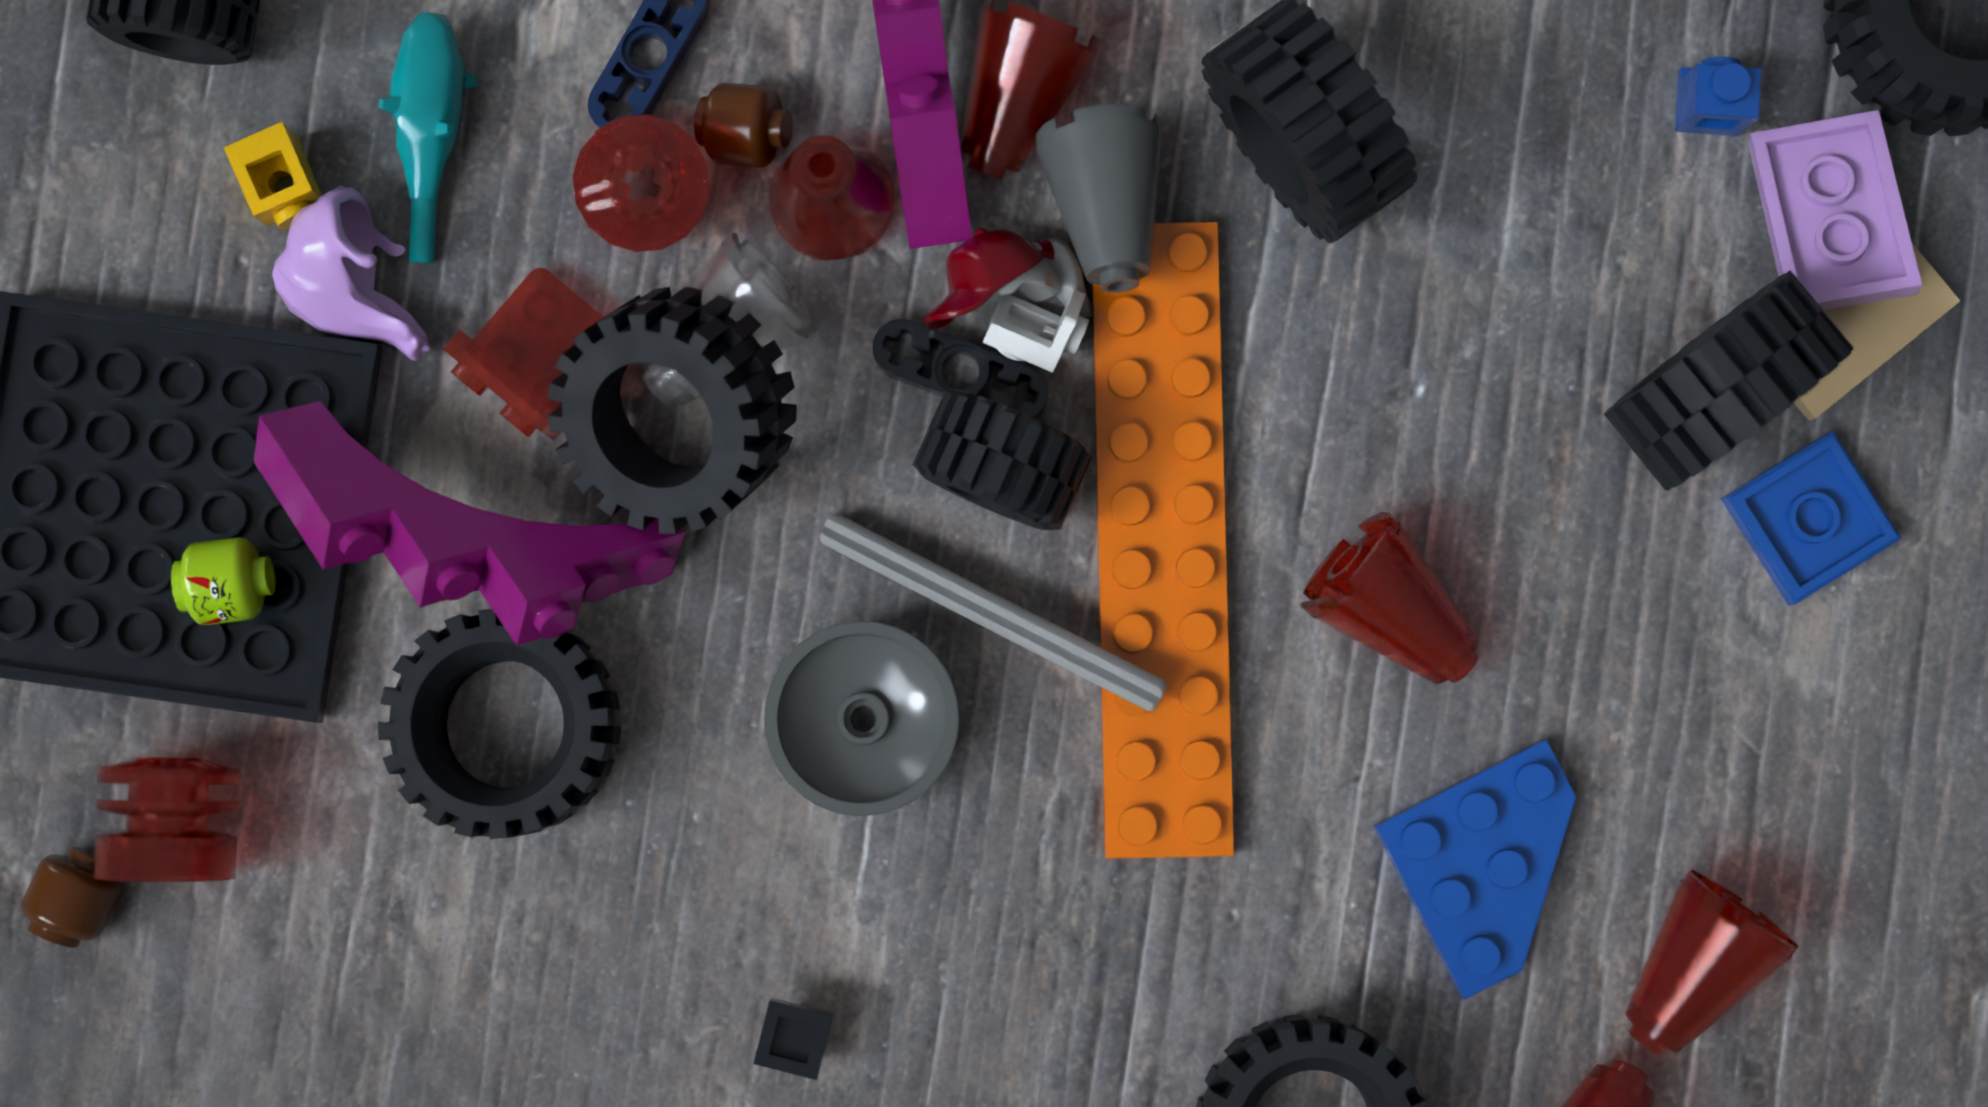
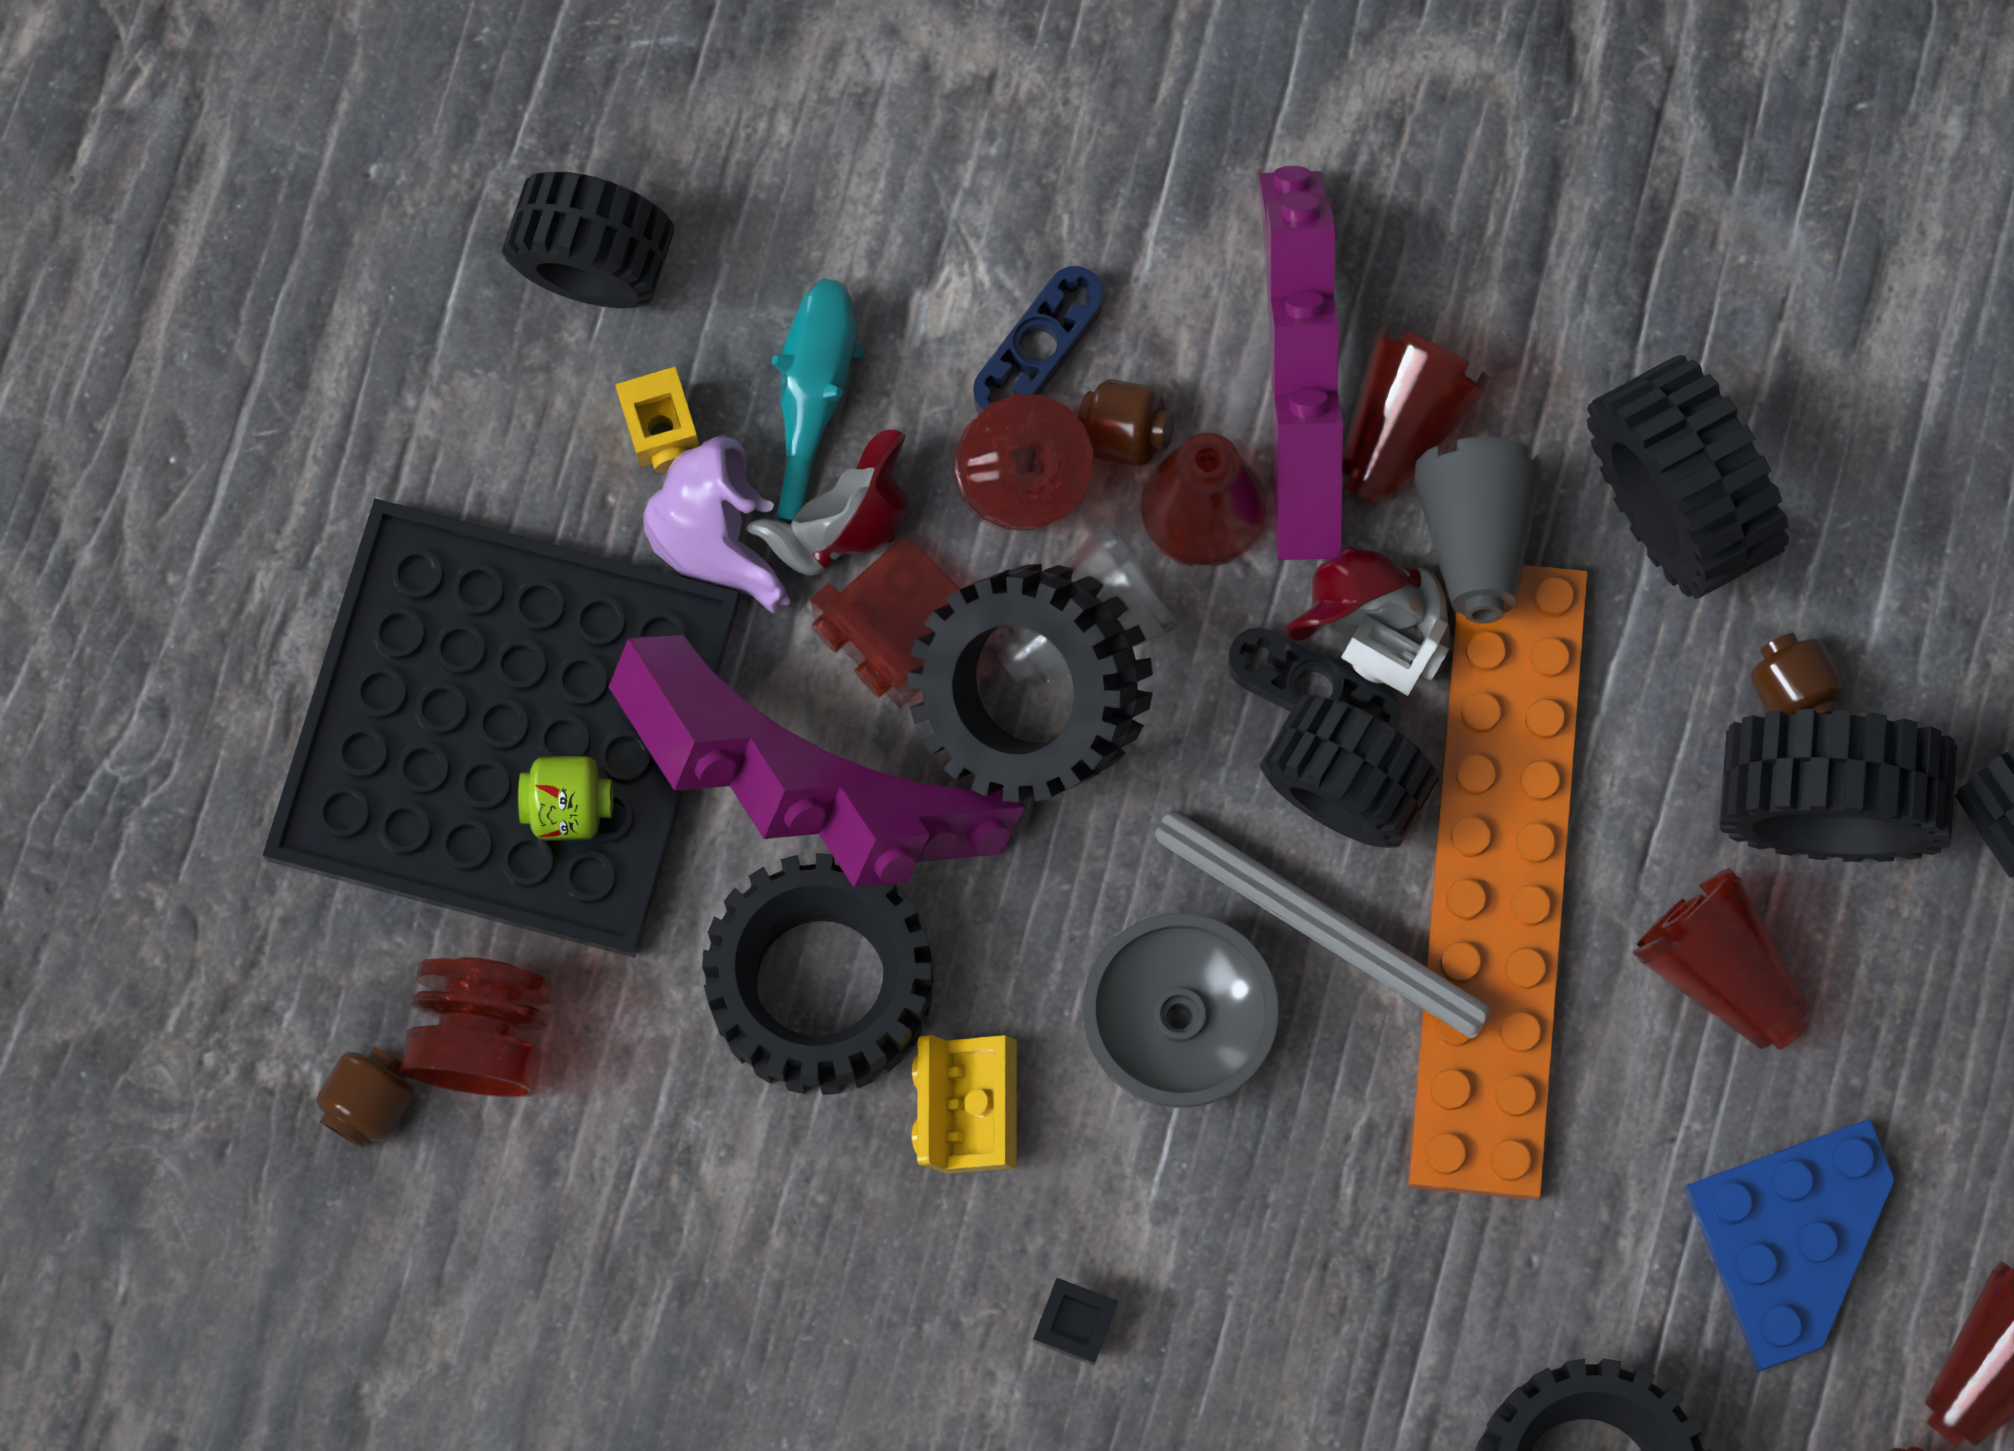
camera: 10 degrees right, 10 degrees down
(476, 257) = (848, 519): none -> hair
(662, 833) = (966, 1104): none -> yellow bracket
(1436, 310) = (1797, 676): none -> reddish brown head
(1490, 421) = (1838, 785): none -> black tyre

